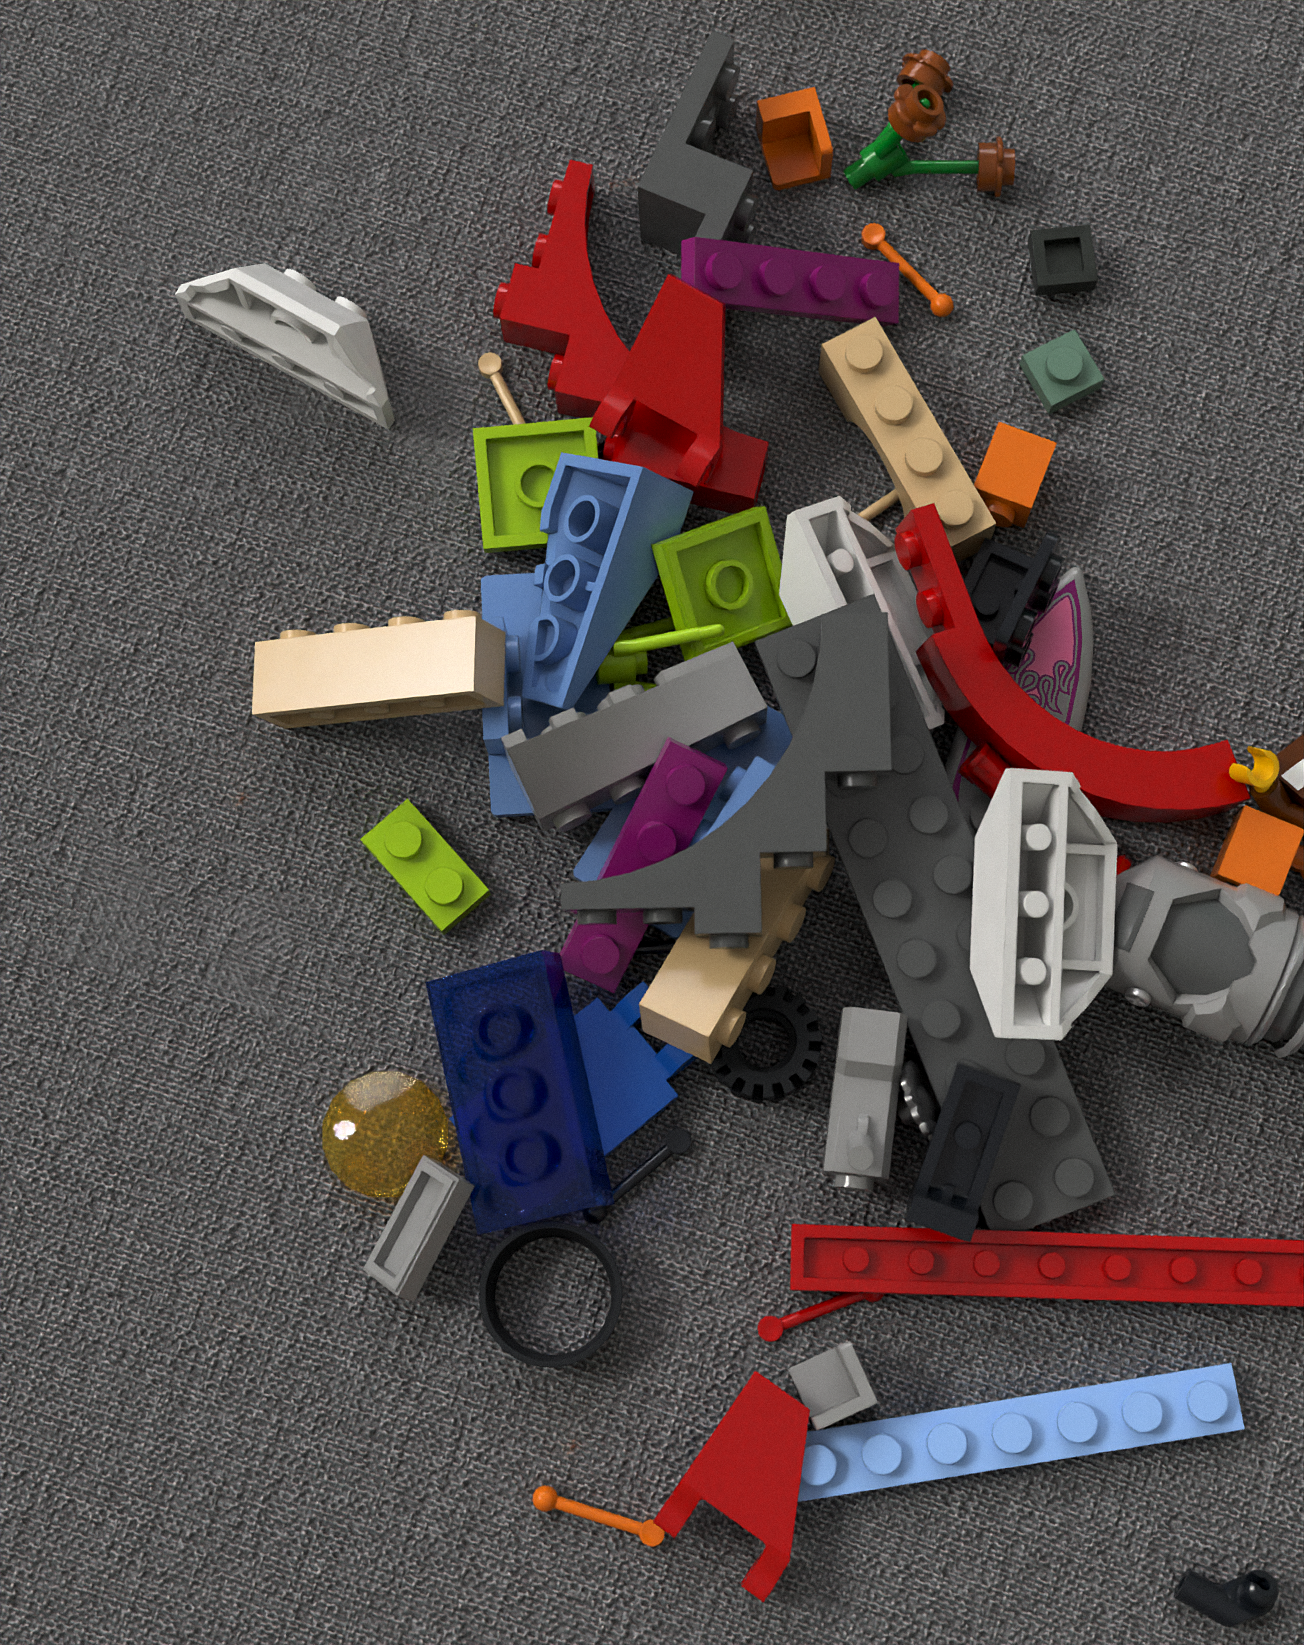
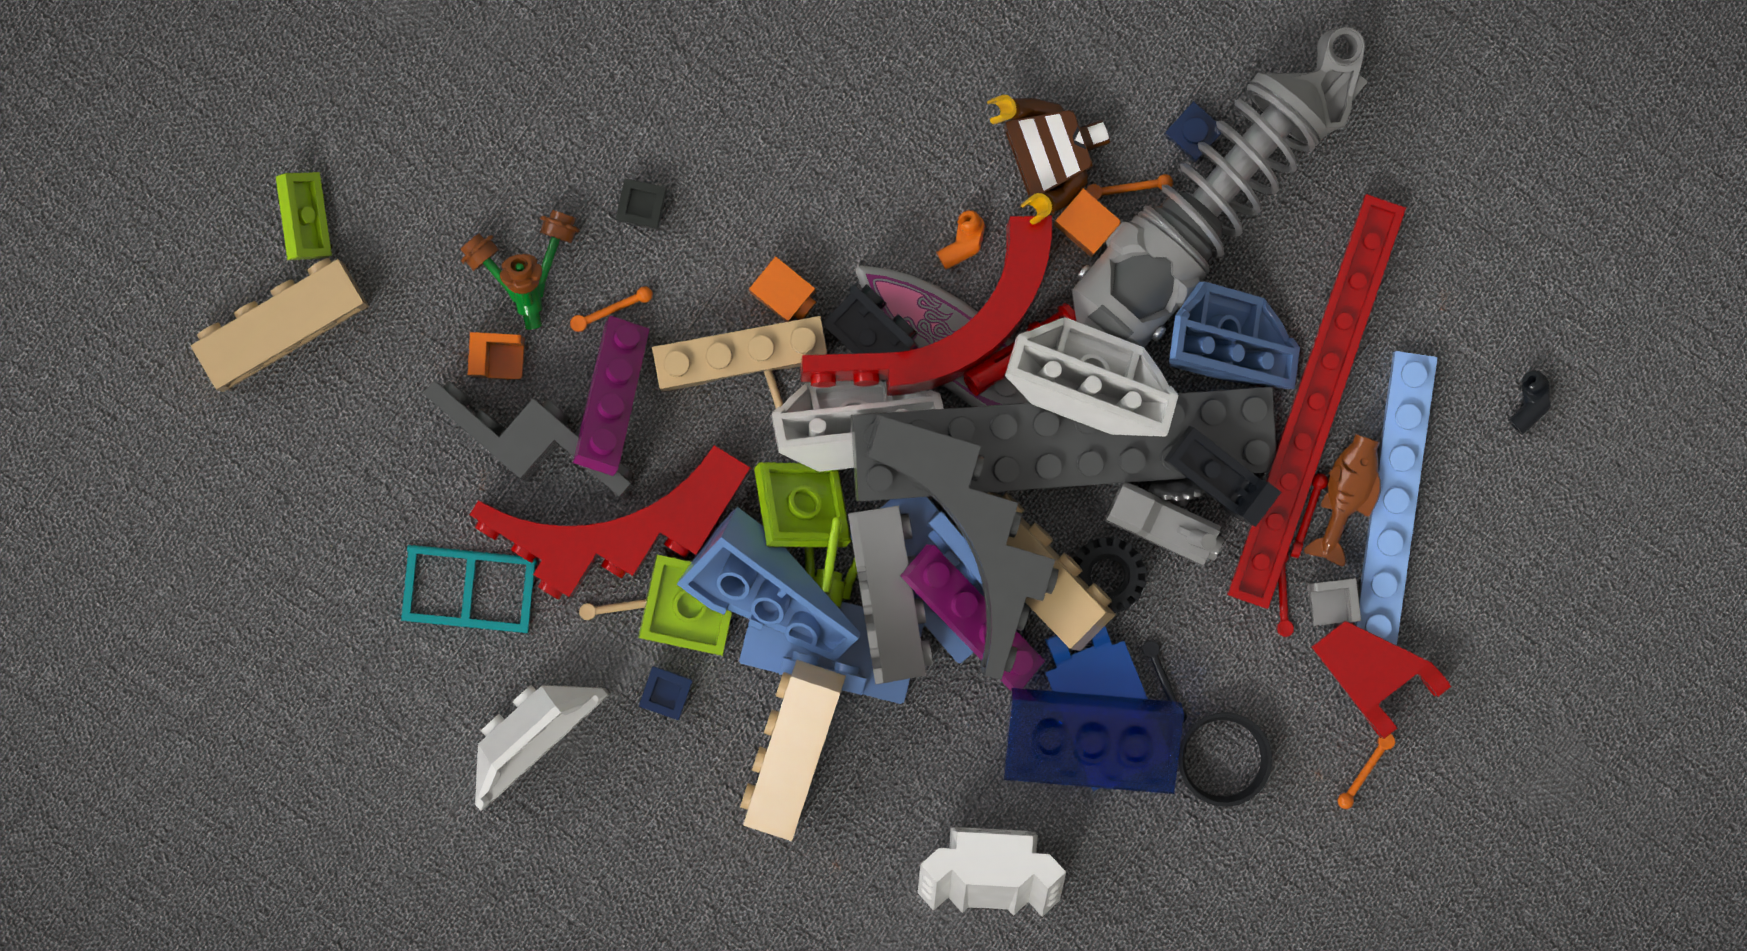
camera: 80 degrees left, 10 degrees up
(289, 1001) = (991, 872): none -> white slope
(381, 1132) = (1089, 834): clear yellow dish -> none
(409, 493) = (665, 693): none -> dark blue plate
(418, 1228) = (1157, 830): light grey tile -> none
(425, 866) = (922, 757): lime plate -> none
(431, 215) = (465, 620): none -> teal window
(677, 372) = (658, 492): red flag -> none
(999, 1311) = (1319, 482): none -> red hinge
(1008, 1360) = (1351, 488): none -> dark orange animal
(1061, 371) = (717, 230): sand green plate -> none
(1165, 1105) = (1233, 339): none -> medium blue wedge
(1169, 704) = (967, 241): none -> orange arm

